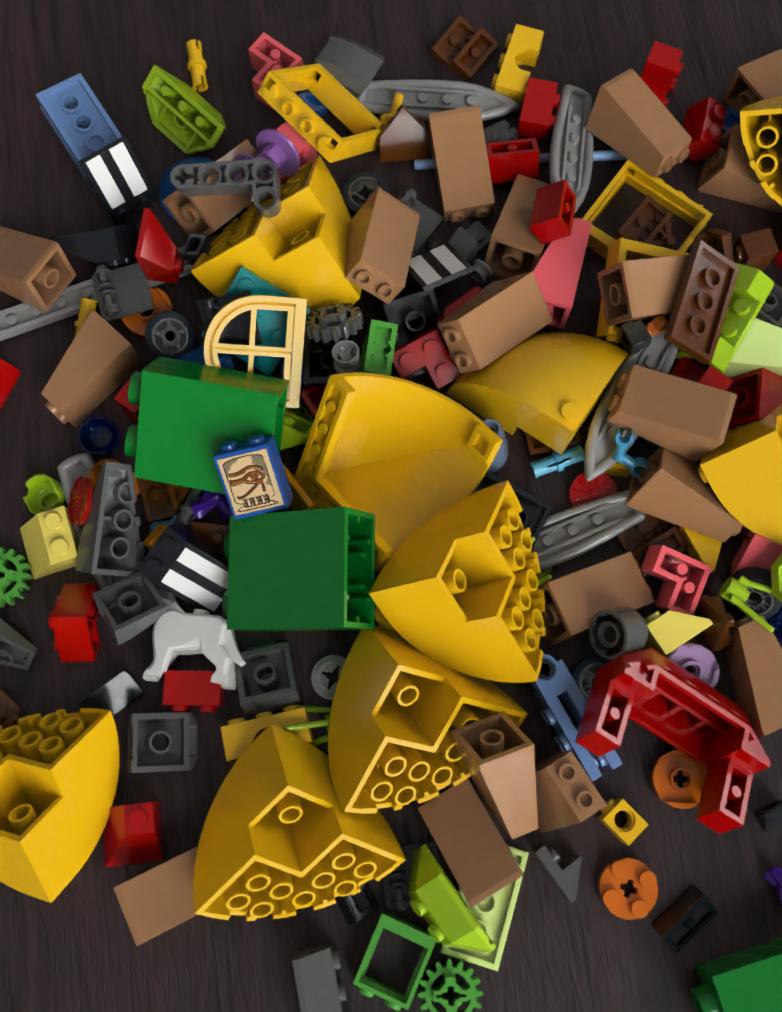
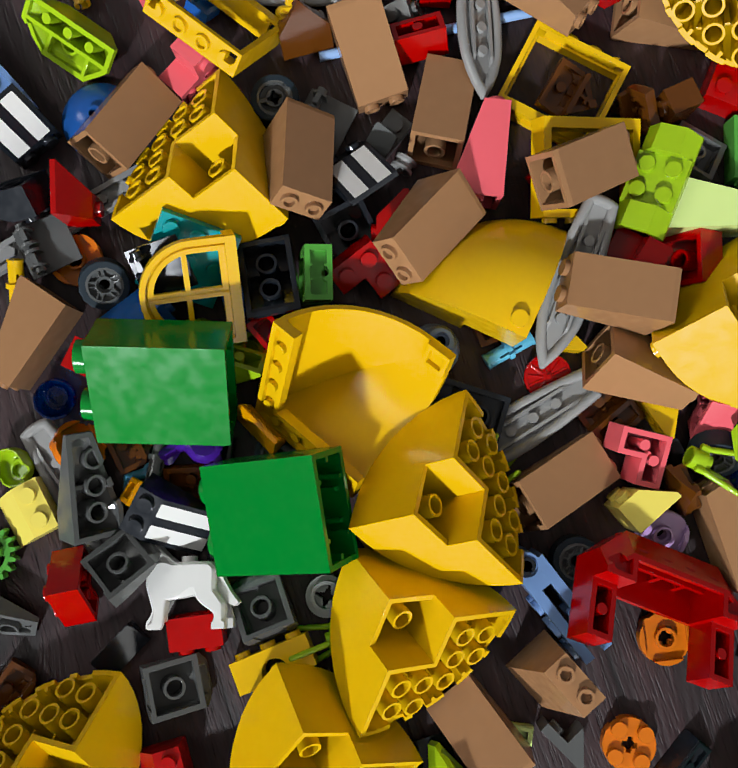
camera: 10 degrees left, 10 degrees up
(80, 501) = (49, 471): red wheel -> none
(194, 247) = (111, 188): black slope -> none
(225, 185) = (127, 120): dark grey beam -> none
(253, 476) = (214, 429): brick -> none
(276, 148) = (174, 76): medium lavender hose -> none
(334, 323) = (267, 251): dark grey gear -> none
(346, 357) = (283, 282): light grey wheel -> none
(502, 769) = (500, 669): medium nougat slope -> none
(553, 212) = (470, 95): red brick -> none
(617, 632) = (592, 520): dark grey piece -> none
(620, 456) = (571, 341): dark azure arm -> none
(633, 827) = (623, 693): yellow brick -> none
(638, 336) = (575, 217): pearl dark grey piece -> none
(702, 302) = (635, 174): reddish brown plate -> none

